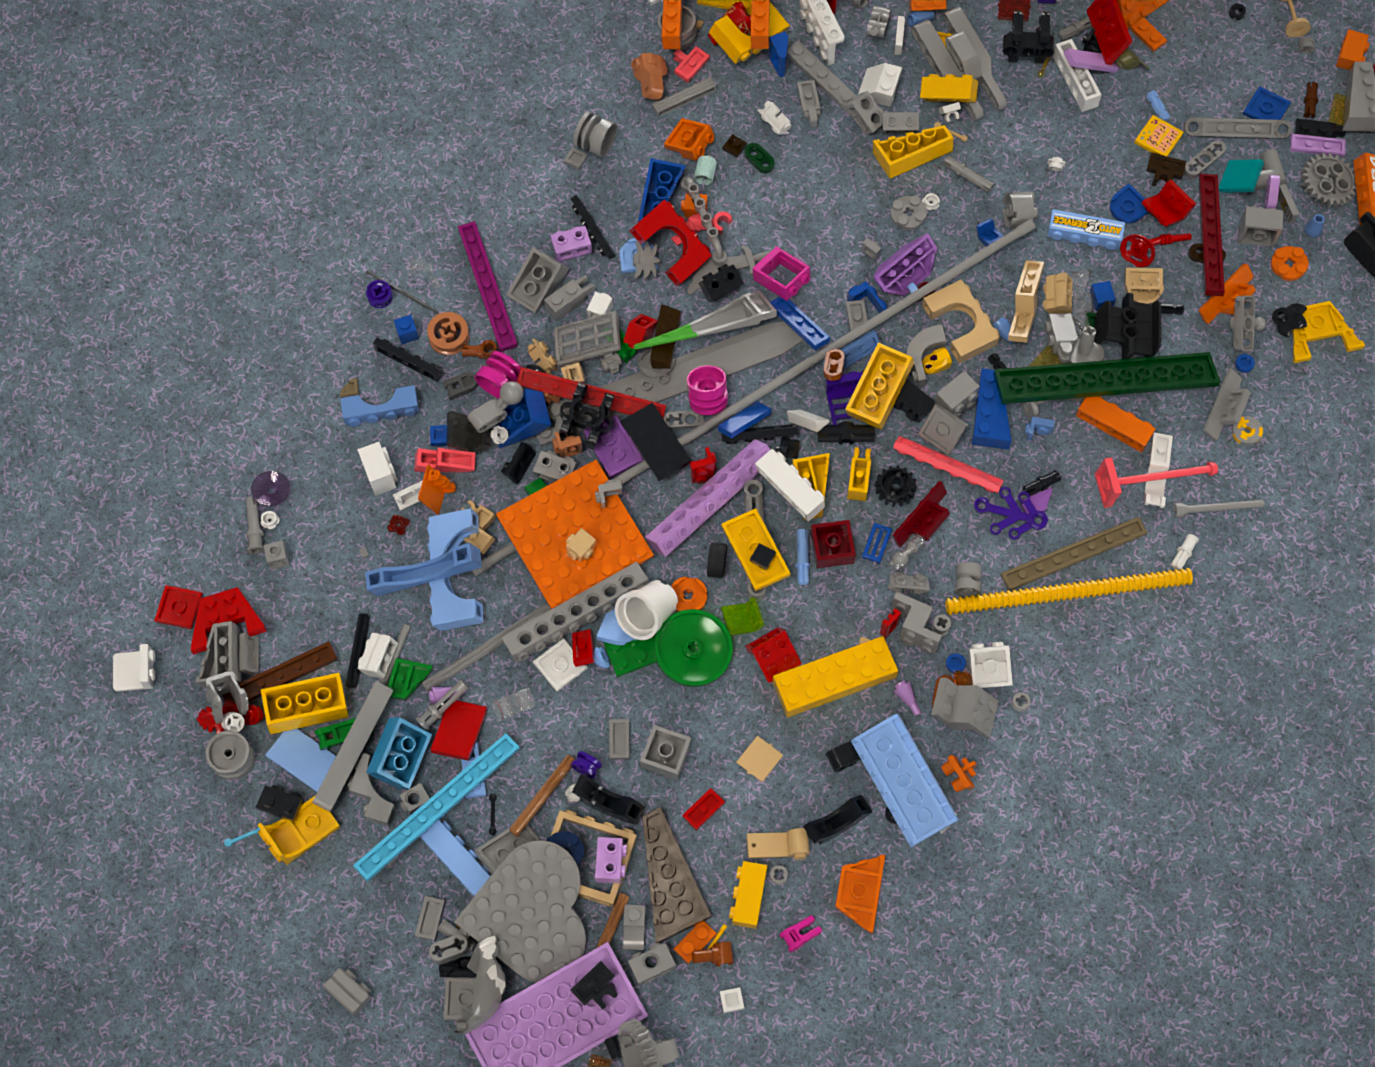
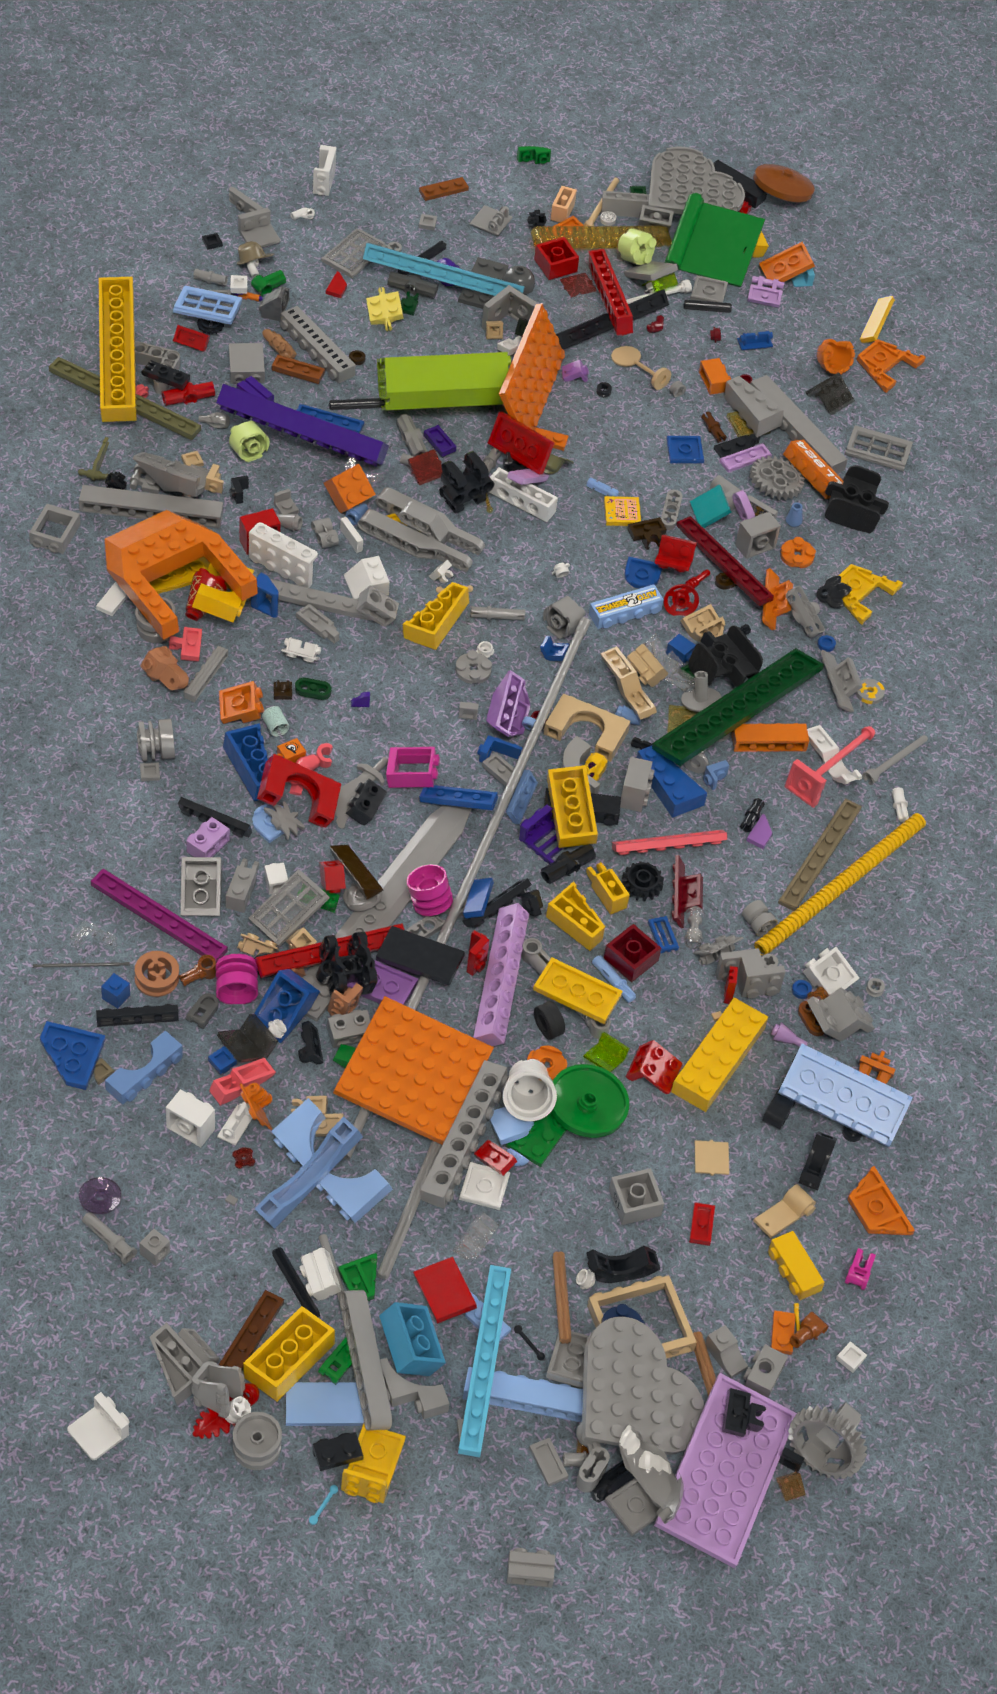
camera: 45 degrees left, 15 degrees down
(178, 607) = (94, 1350): red tile -> none
(220, 608) = (144, 1319): red wing -> none
(269, 515) = (119, 1218): white plate -> none
(339, 361) = (72, 1052): none -> blue plate
(379, 293) = (69, 976): dark purple wheel -> none
(418, 791) = (455, 1363): light grey brick -> none
(433, 709) = (412, 1287): light grey pin -> none
(438, 692) = (402, 1273): lavender cone -> none
(494, 410) = (261, 1007): light grey beam -> none
(580, 545) = (431, 1070): tan brick -> none
(586, 764) = (577, 1248): dark purple wheel -> none
(608, 489) = (417, 1012): light grey bracket -> none
(610, 860) = (669, 1304): lavender brick -> none
(611, 362) = (324, 917): light grey gear -> none
(619, 739) = (585, 1213): light grey tile -> none
(673, 890) = (729, 1299): wing -> none
(687, 185) = (314, 755): light grey bar -> none
(740, 313) = (400, 819): light grey plate -> none
(762, 556) = (591, 990): black tile -> none
(772, 875) = (810, 1234): light grey bush -> none
(790, 484) = (565, 921): white brick -> none
(791, 191) = (362, 700): none -> dark purple tile
(807, 419) = (529, 870): white slope -> none
(834, 364) = (520, 810): dark orange plate -> none
(900, 122) = (412, 600): light grey bracket -> none
(943, 429) = (645, 815): light grey plate -> none
(949, 88) = (431, 553): yellow brick -> none
(1013, 514) = (750, 848): dark purple plant -> none
(1061, 335) = (676, 694): light grey hinge -> none
(1238, 127) = (677, 473): light grey plate -> none

